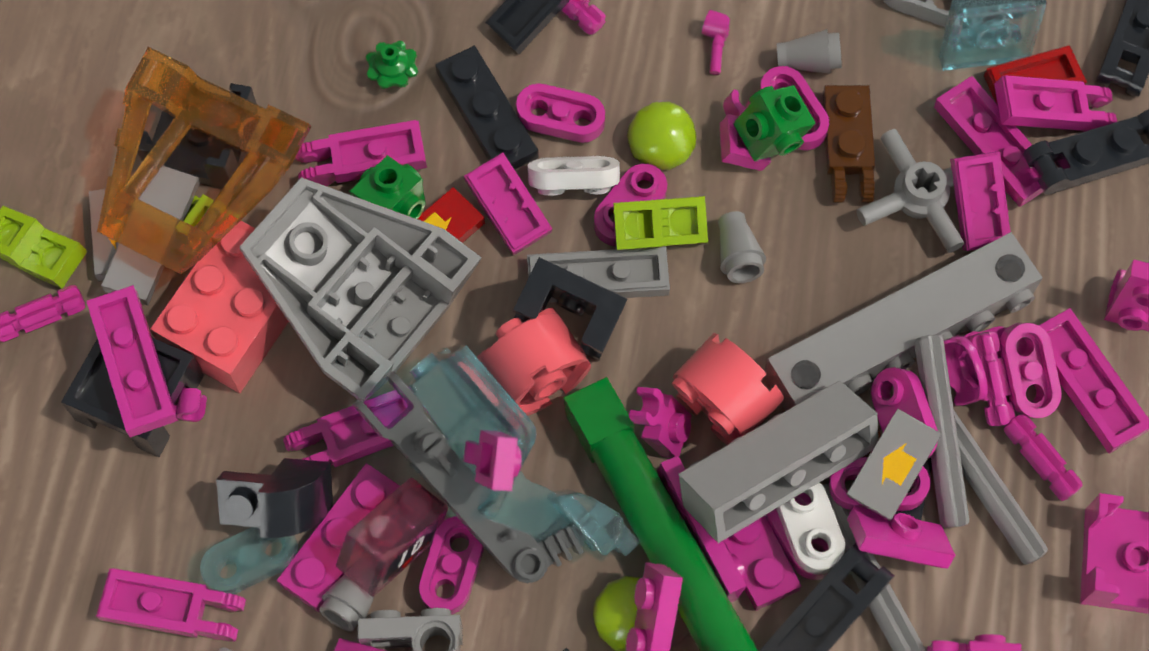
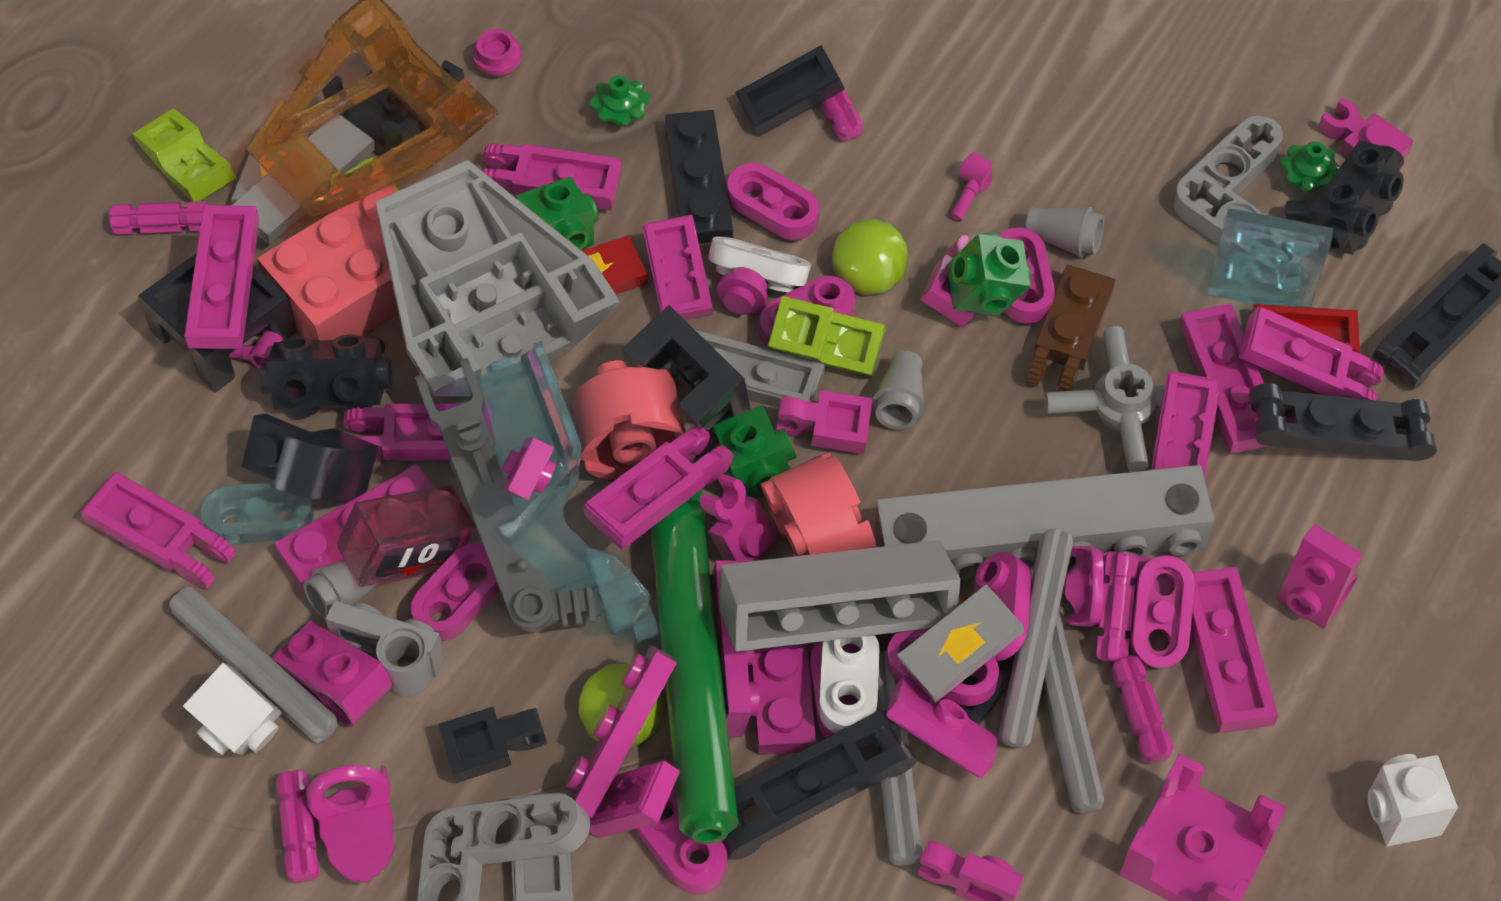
camera: 20 degrees right, 10 degrees down
(254, 410) = (326, 373): none -> black brick
(265, 55) = (496, 52): none -> dark pink plate
(572, 205) = (743, 291): none -> dark pink plate
(587, 421) = (656, 487): none -> dark pink hinge
(647, 351) = (758, 458): none -> green brick
(696, 293) = (836, 420): none -> dark pink plate

